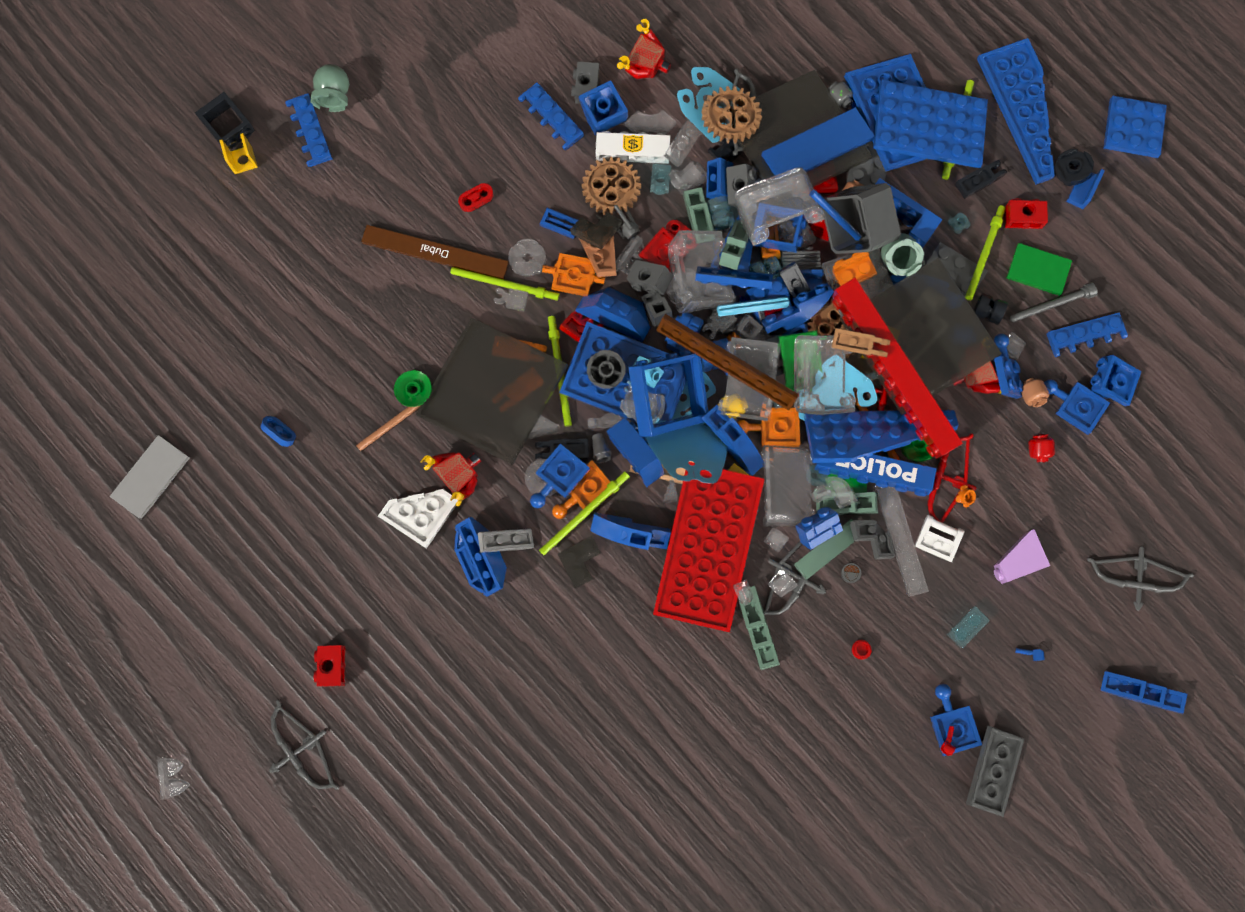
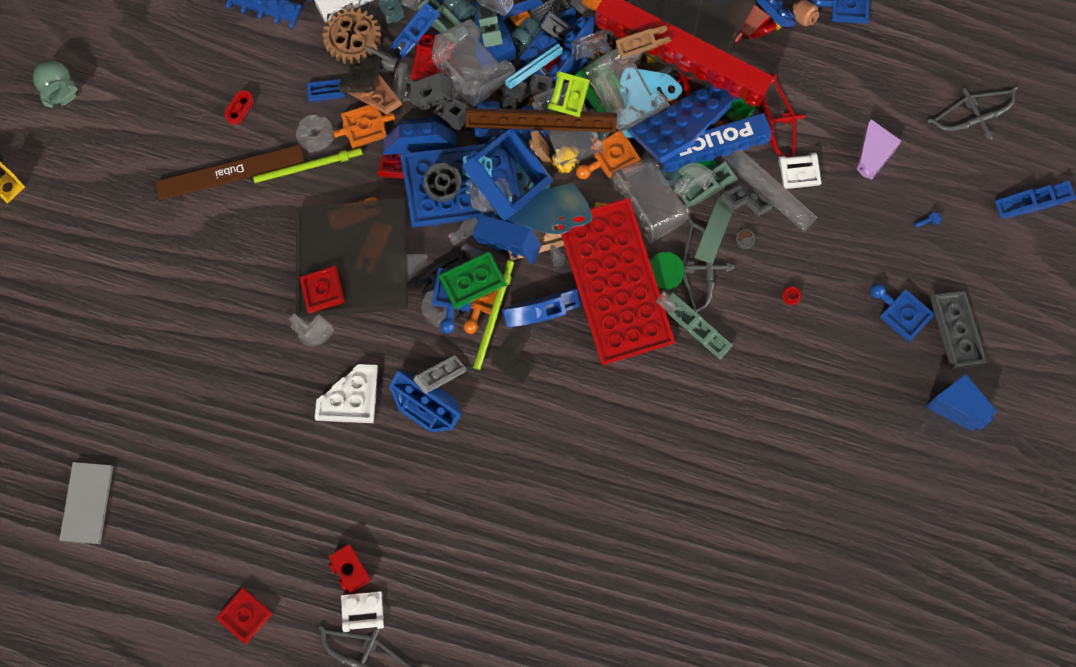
camera: 30 degrees left, 5 degrees down
(221, 653) = (244, 616): none -> red plate
(278, 431) = (181, 397): blue plate -> none
(310, 129) = (54, 129): blue hinge -> none
(324, 703) = (362, 604): none -> white plate
(386, 427) = (277, 339): nougat bar -> none
(407, 382) = (277, 288): green dish -> none
(421, 439) = (313, 334): none -> clear brick
(449, 404) = (322, 289): none -> red plate
(455, 473) = (361, 344): red torso -> none
(514, 299) = (325, 174): clear plate -> none
(554, 336) = (378, 186): lime bar -> none
(582, 472) = (472, 280): none -> green tile
(667, 212) = (414, 30): none -> blue plate
(713, 385) = (541, 148): none -> medium nougat hinge
(735, 439) = (583, 181): blue slope -> none
(740, 278) = (509, 49): blue plate -> none
(762, 561) = (667, 270): none -> green tile
(768, 358) = (574, 96): none -> lime plate
(776, 539) = (667, 244): clear slope -> none
(782, 583) = (695, 278): clear slope -> none
(816, 315) = (590, 45): none -> clear tile
(818, 527) = (697, 215): blue brick -> none
(946, 747) = (908, 332): red hand -> none
(956, 845) = (963, 405): none -> blue slope
(966, 496) = (800, 125): orange plate -> none
(968, 627) = (866, 228): clear light blue plate -> none
(1041, 447) = (837, 53): red head -> none

